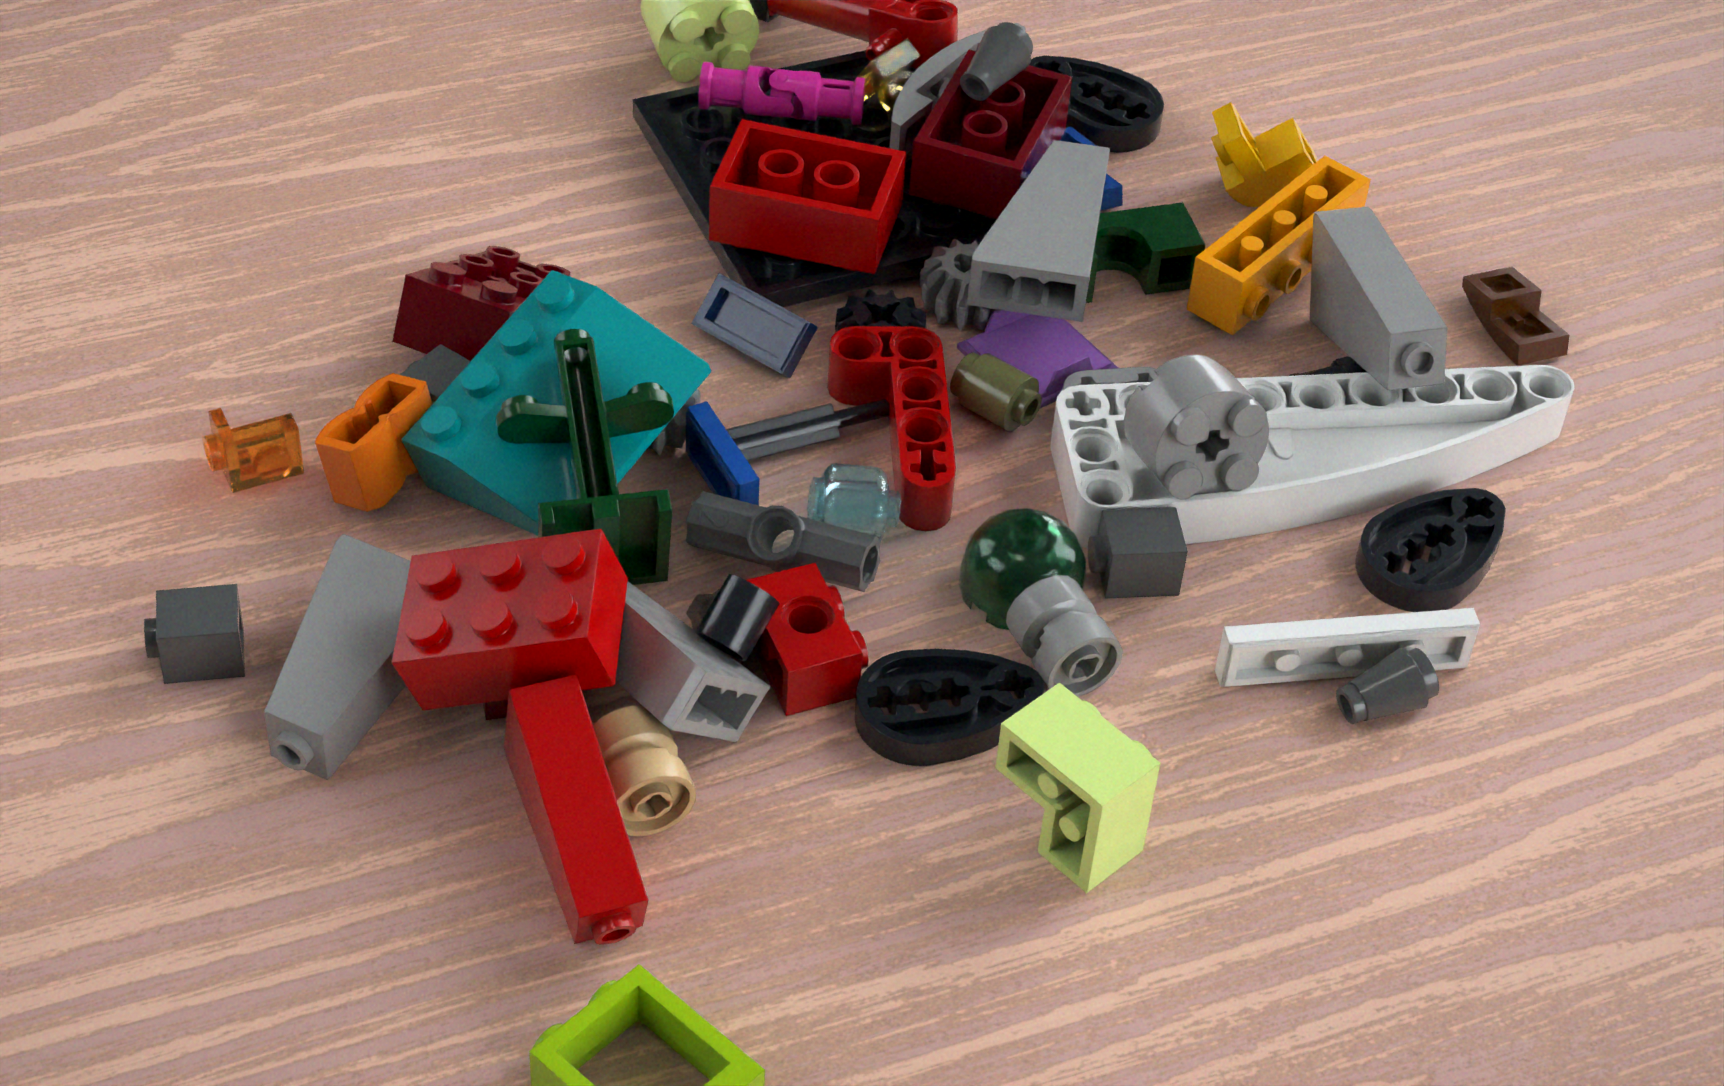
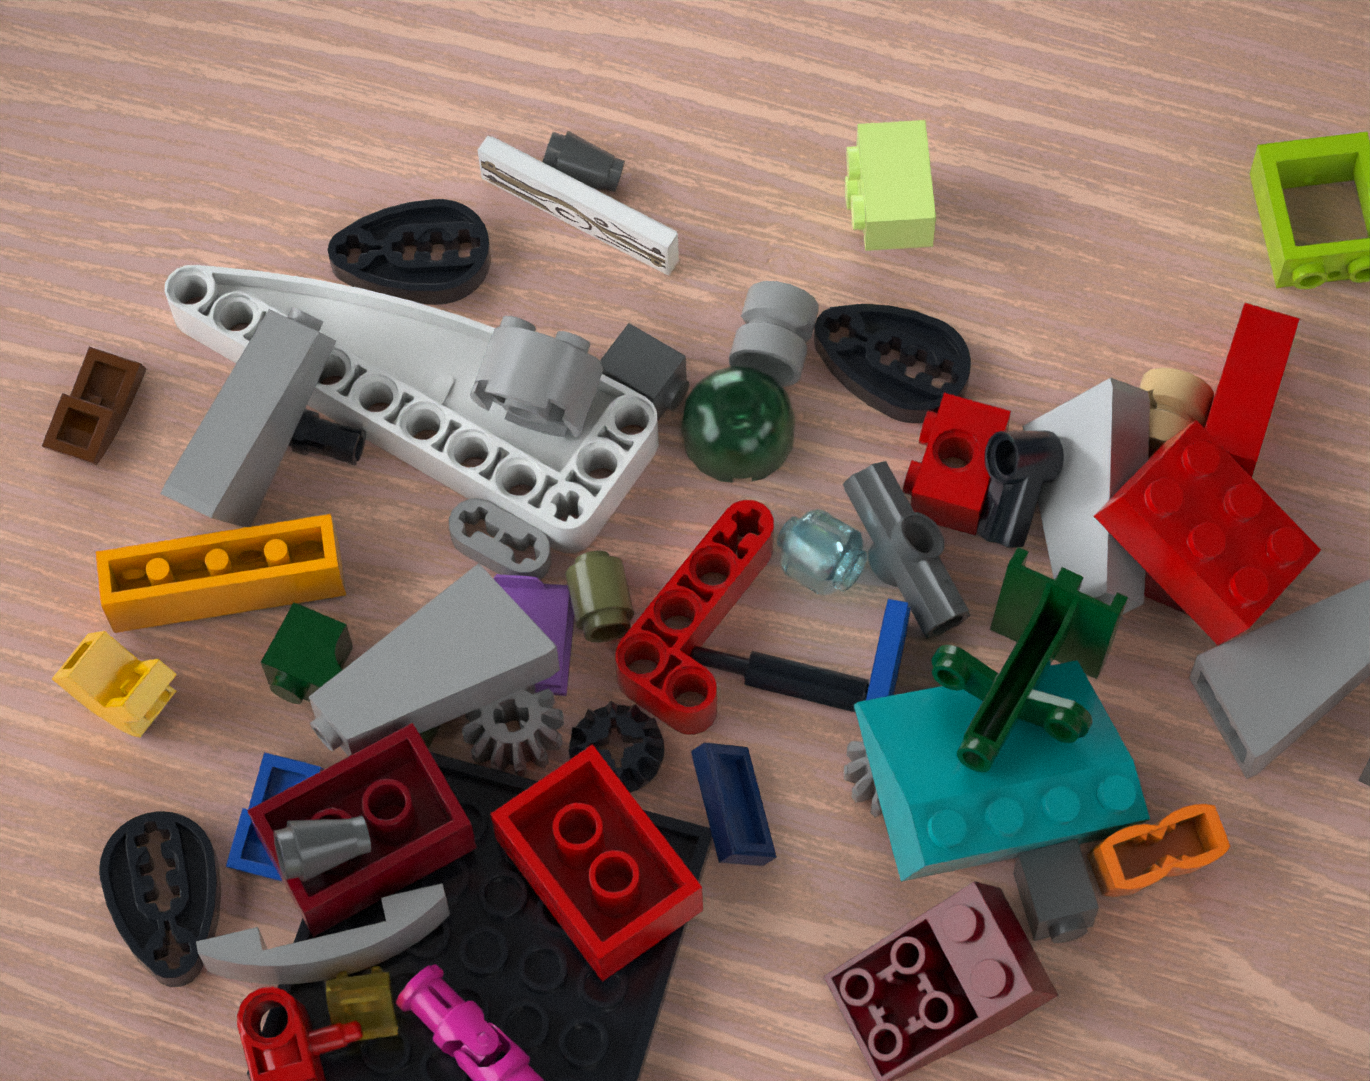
camera: 135 degrees left, 20 degrees up
(254, 451) = (1254, 928): clear orange bracket -> none

